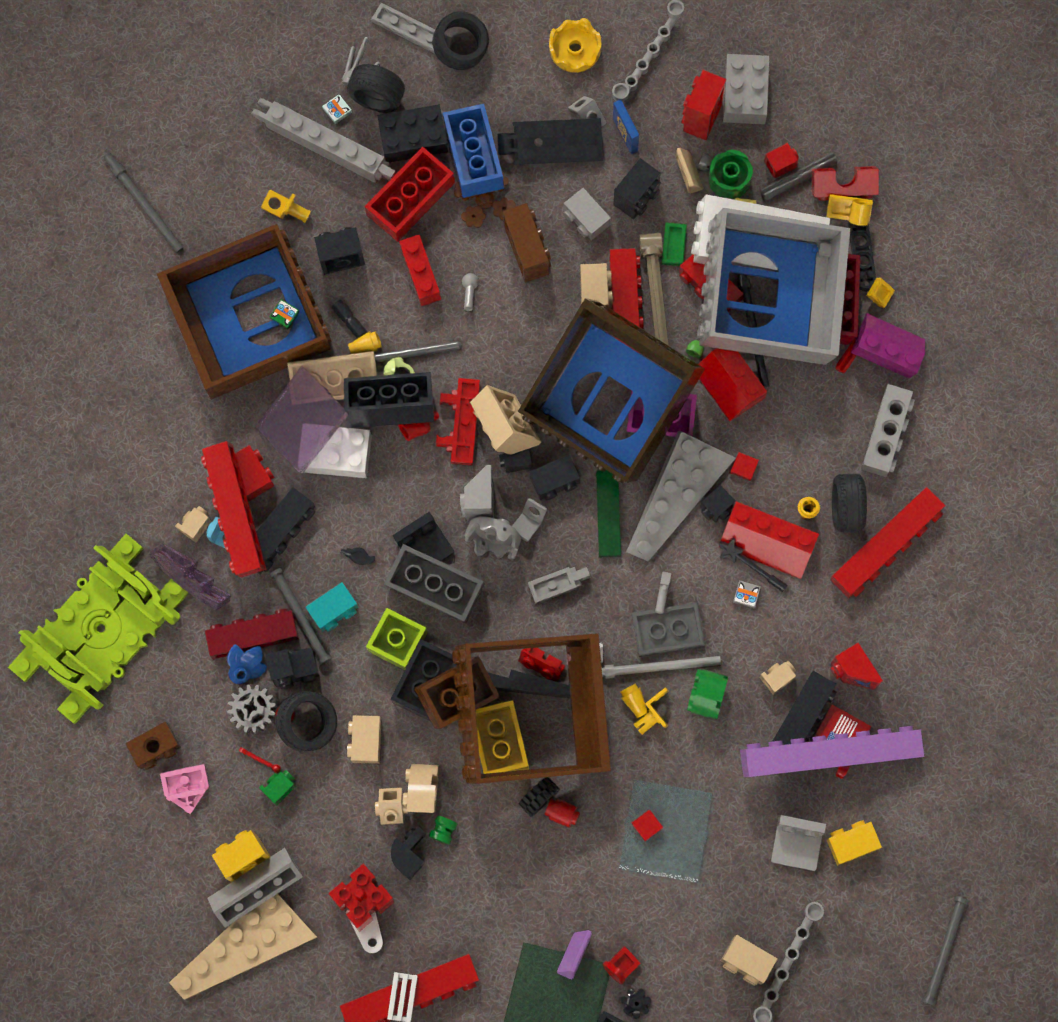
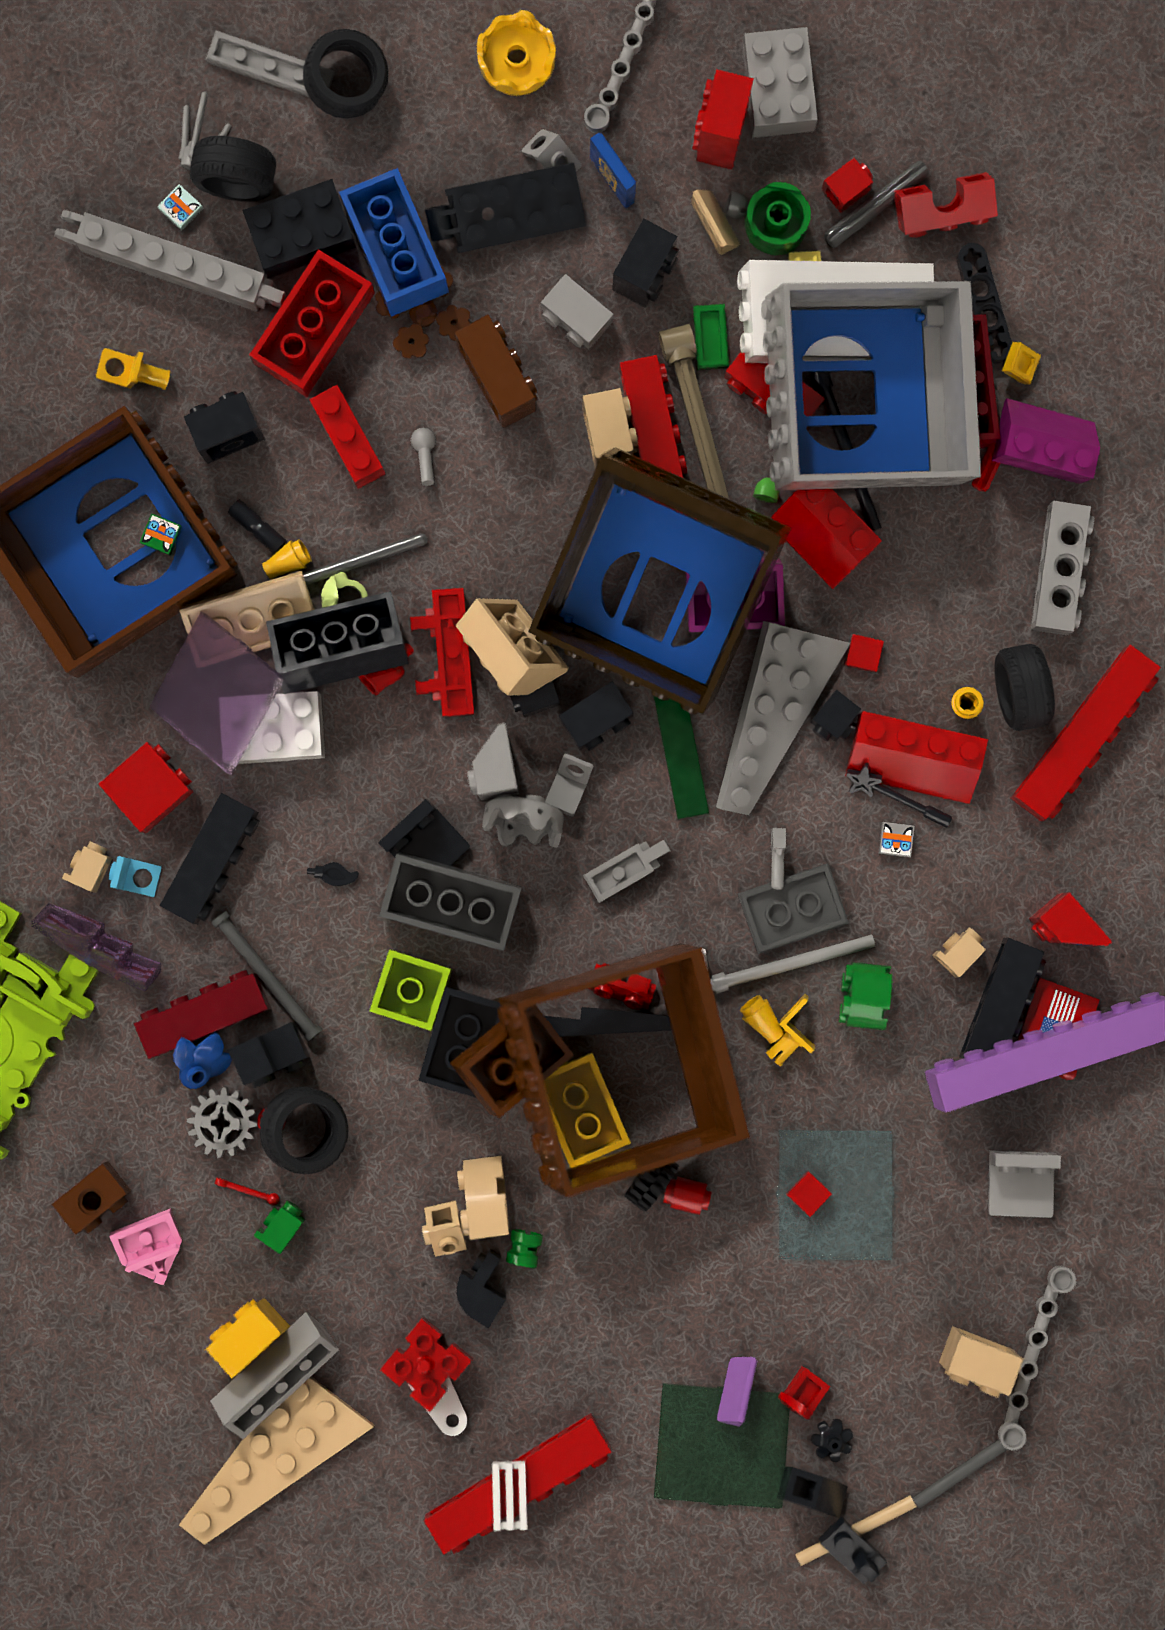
camera: 15 degrees left, 10 degrees up
(233, 509) = (141, 843): red brick -> none
(332, 607) = (310, 958): teal brick -> none
(365, 739) = (391, 1138): tan brick -> none
(849, 208) = (960, 244): yellow plate -> none
(854, 842) = (1100, 1169): yellow brick -> none

